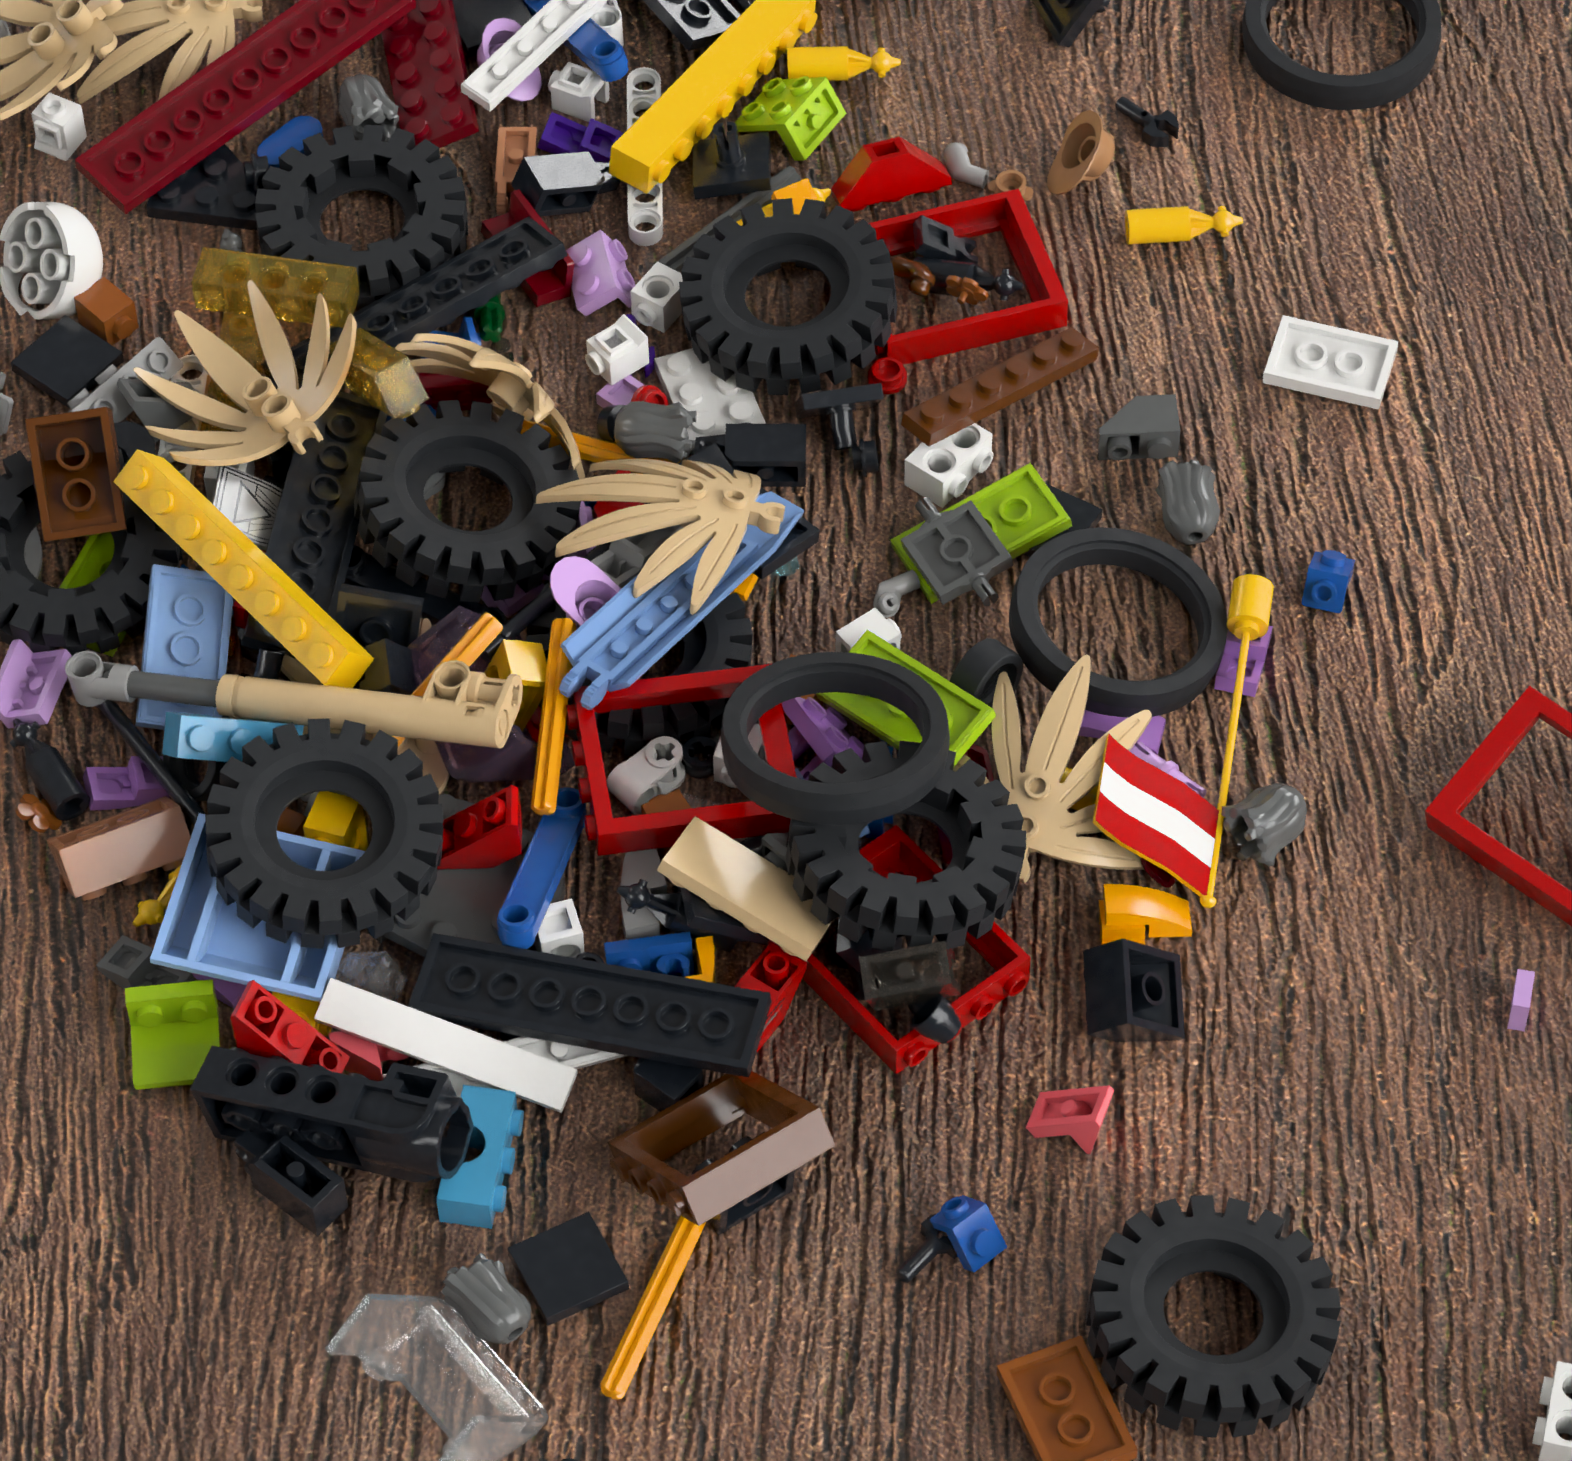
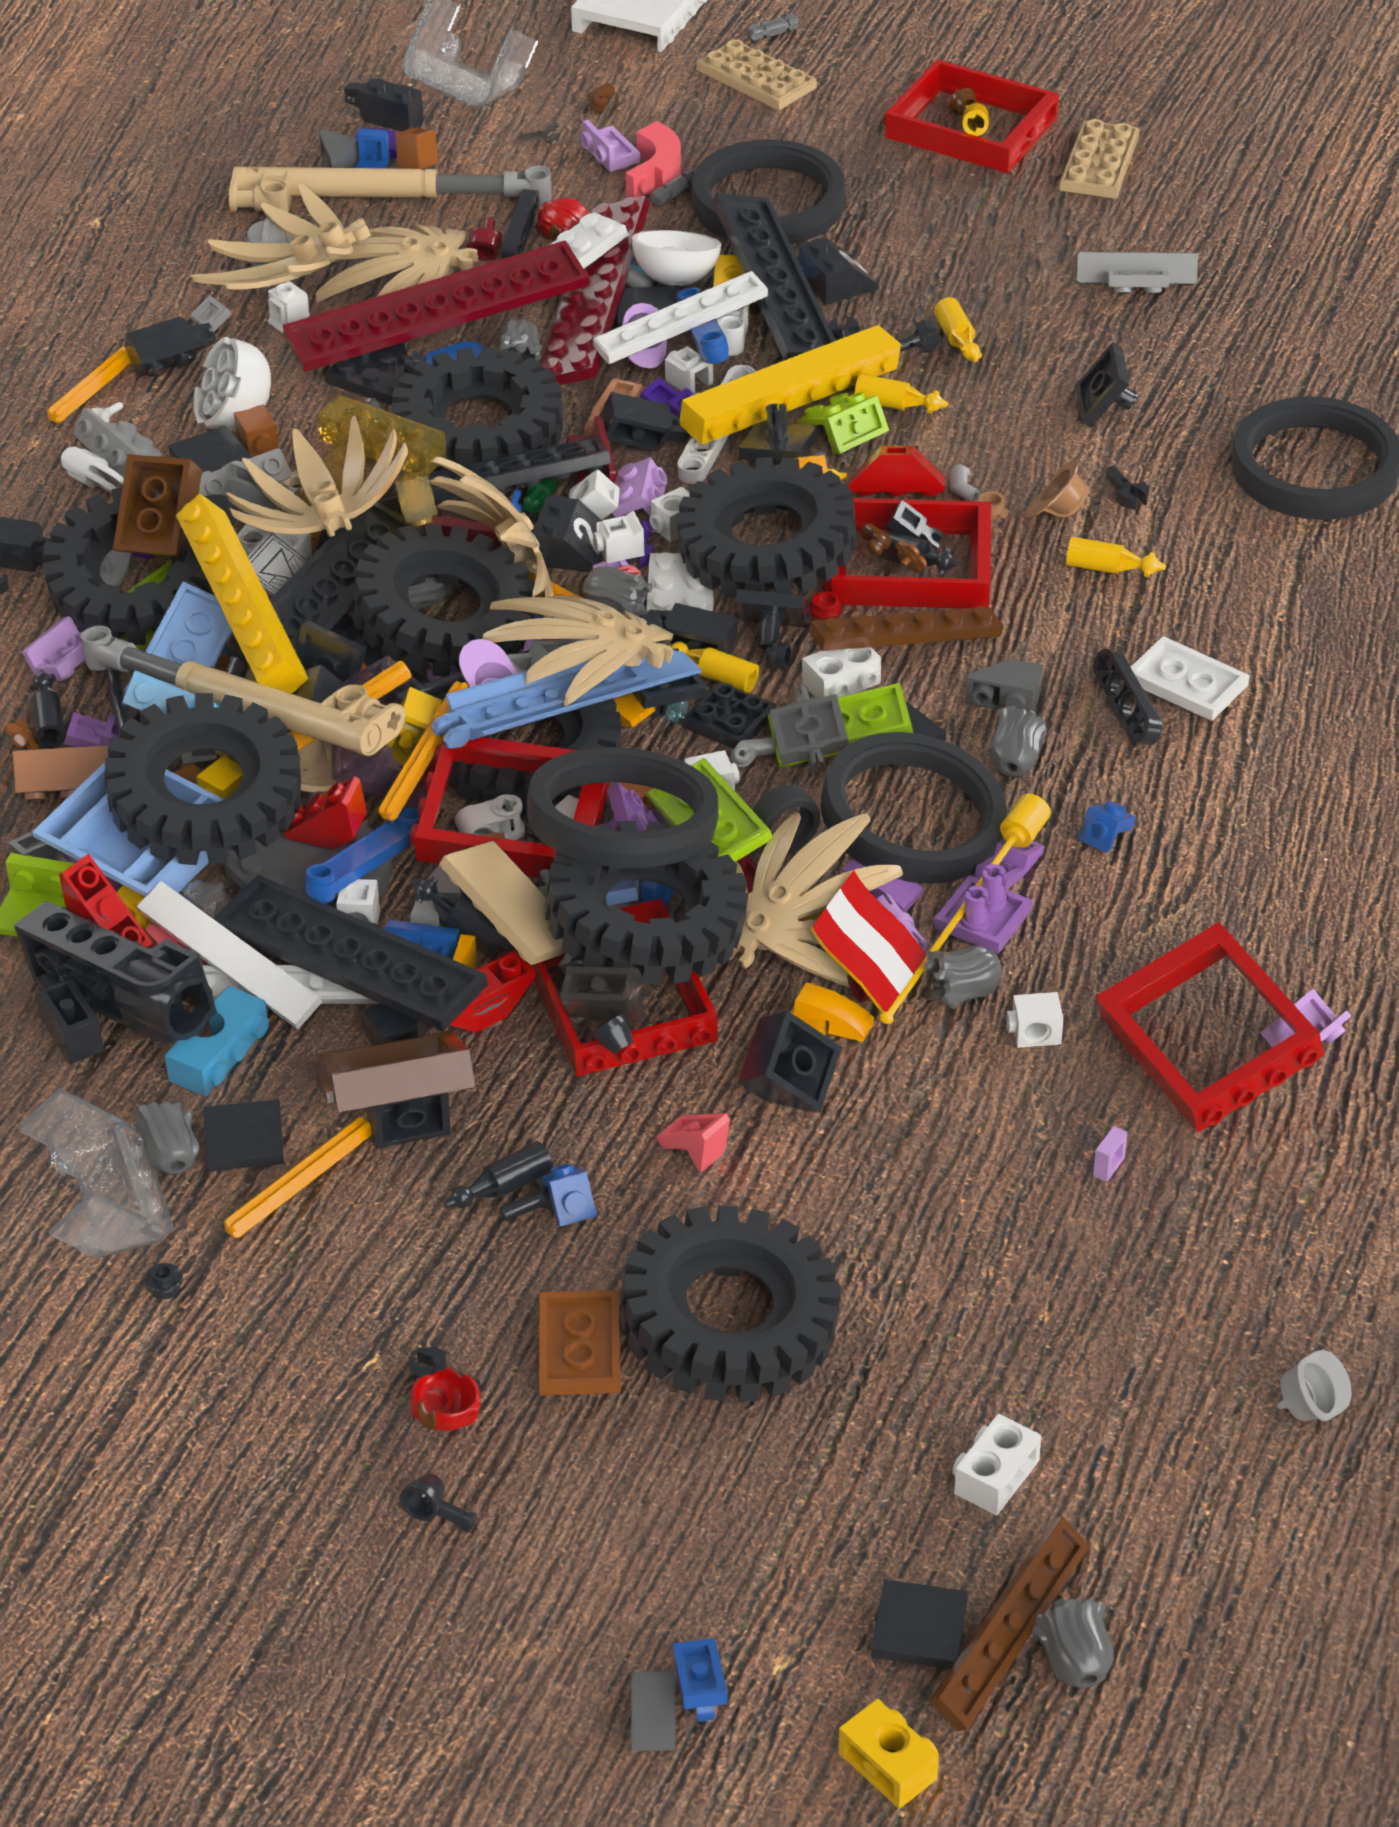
camera: 20 degrees right, 10 degrees down
(554, 356) = (566, 534): none -> black slope
(559, 304) = (597, 494): none -> white brick
(813, 491) = (722, 667): none -> yellow wheel
(848, 553) = (728, 715): none -> black tile
(885, 1229) = (504, 1175): none -> black wheel
(1260, 735) = (990, 910): none -> medium lavender plate
(1275, 411) = (1122, 702): none -> black beam
(1368, 854) = (1036, 1019): none -> white brick

